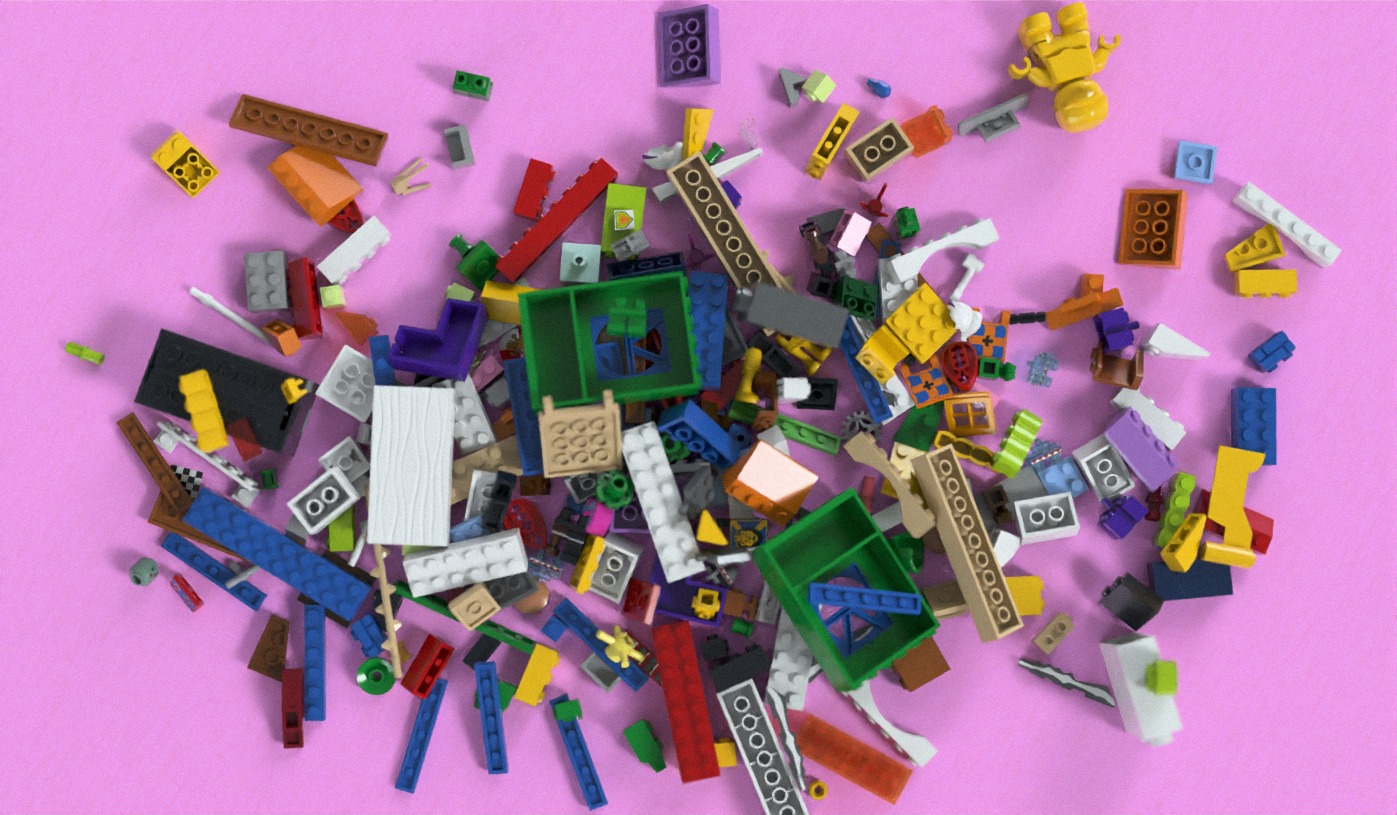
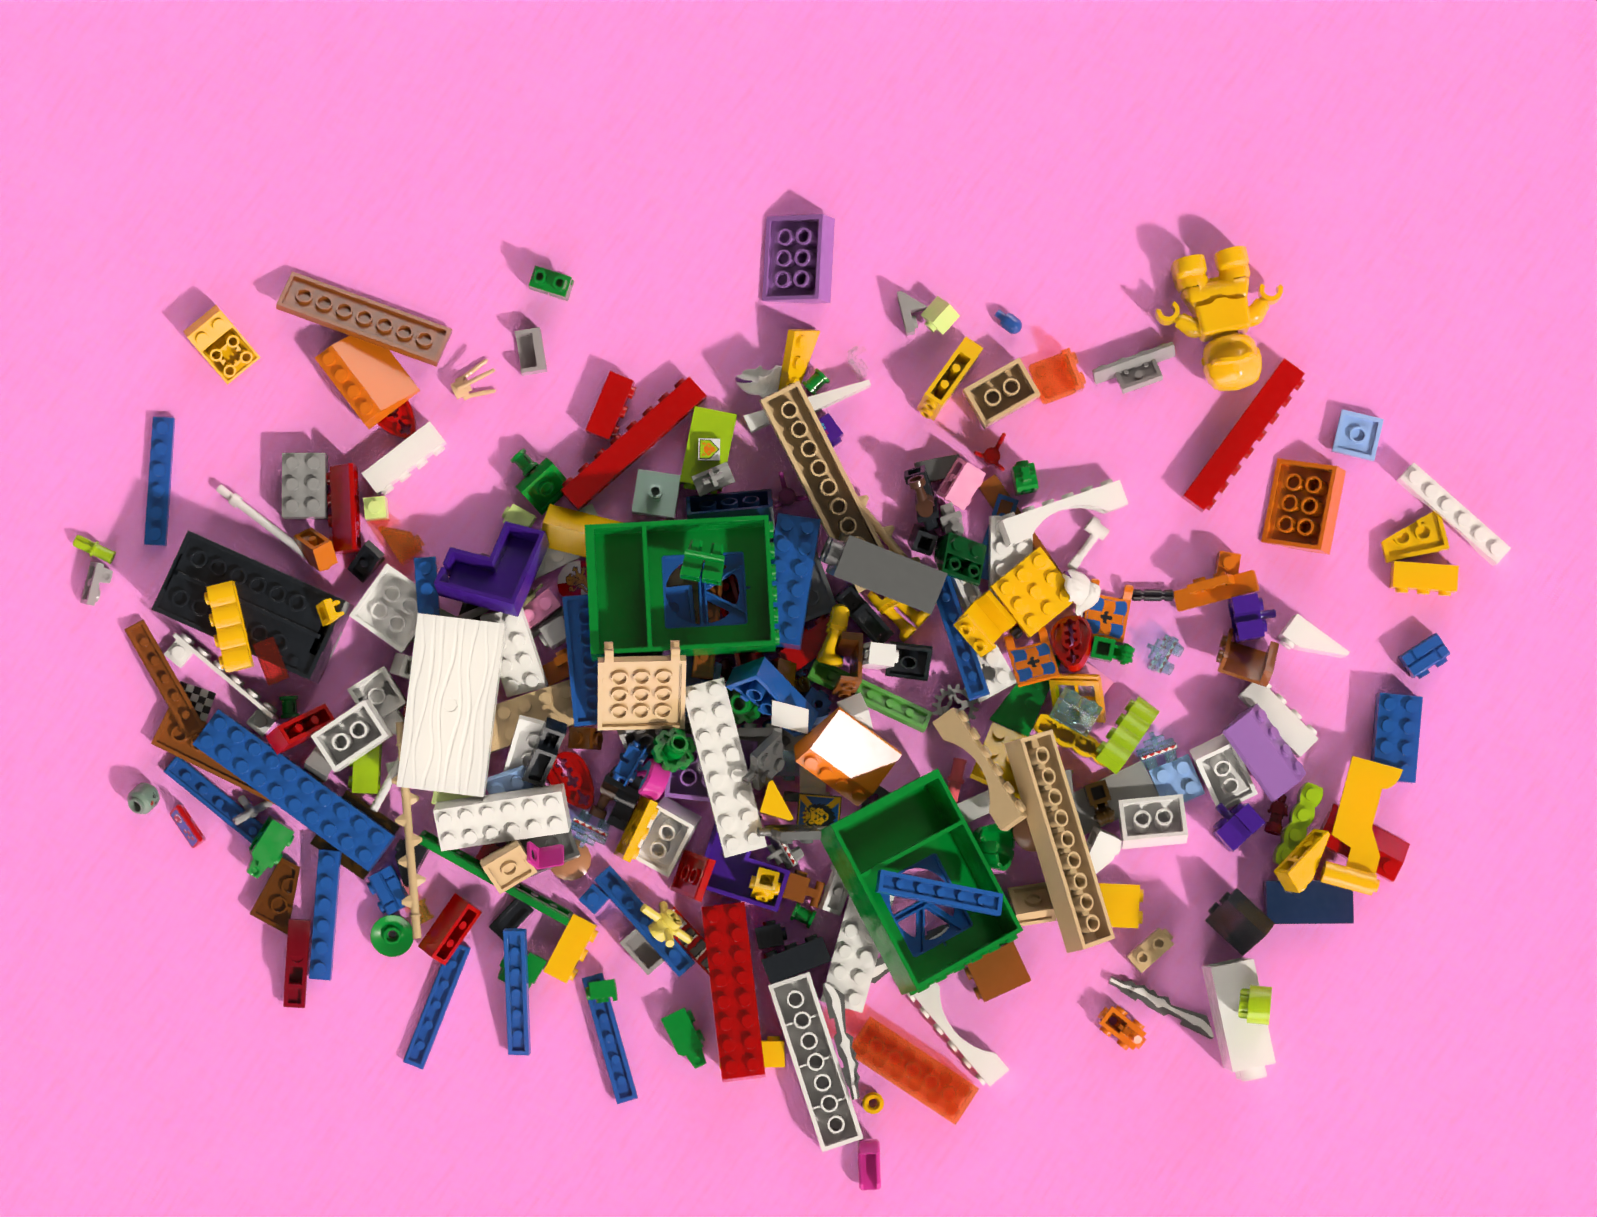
camera: 10 degrees right, 0 degrees up
(88, 375) = (96, 574): none -> light grey hinge
(139, 288) = (159, 481): none -> blue plate
(259, 605) = (268, 846): none -> green hinge
(276, 498) = (299, 728): none -> red brick
(328, 344) = (366, 561): none -> black slope
(507, 595) = (546, 856): none -> dark pink bracket
(580, 497) = (635, 755): none -> blue hinge
(716, 451) = (790, 716): none -> white sticker
(973, 434) = (1065, 711): none -> clear light blue brick
(1040, 708) = (1128, 1032): none -> orange brick
(1095, 170) = (1243, 435): none -> red brick

